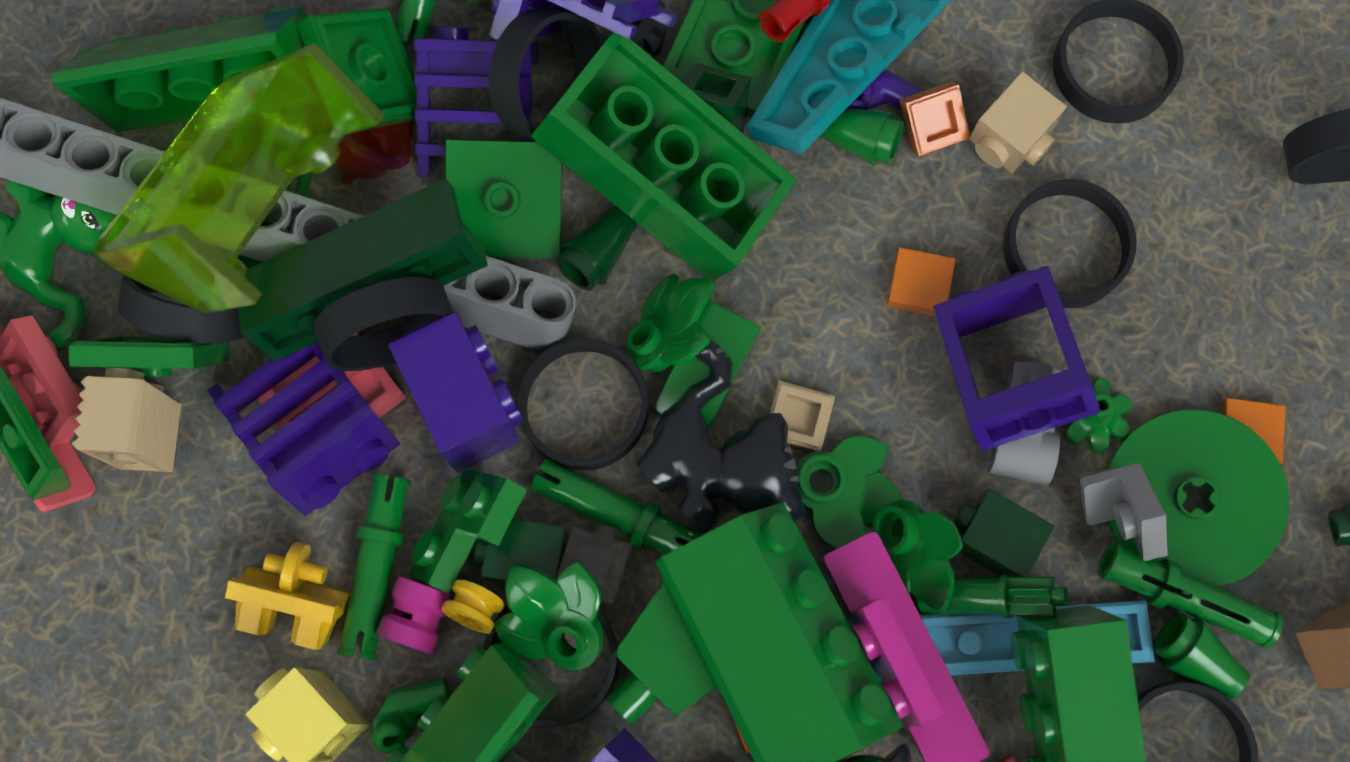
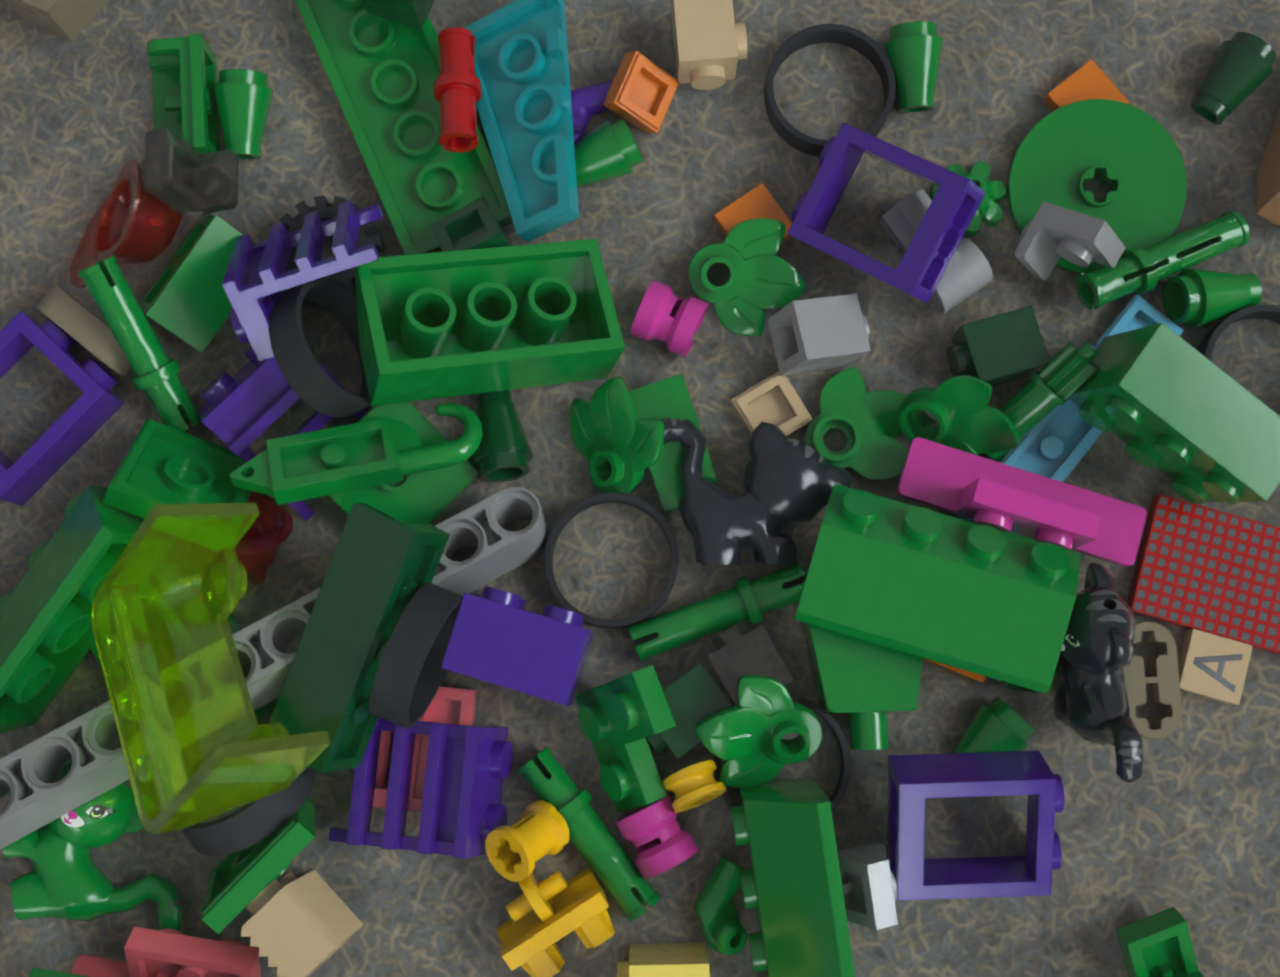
camera: 45 degrees left, 5 degrees up
(327, 524) = (536, 834): none -> yellow bush
(484, 158) = (353, 457): none -> green plate
(793, 283) = (668, 318): none -> dark pink wheel
(881, 316) = (755, 277): none -> green plate
(885, 396) = (819, 334): none -> light grey brick
(1150, 283) = (915, 60): none -> green cone

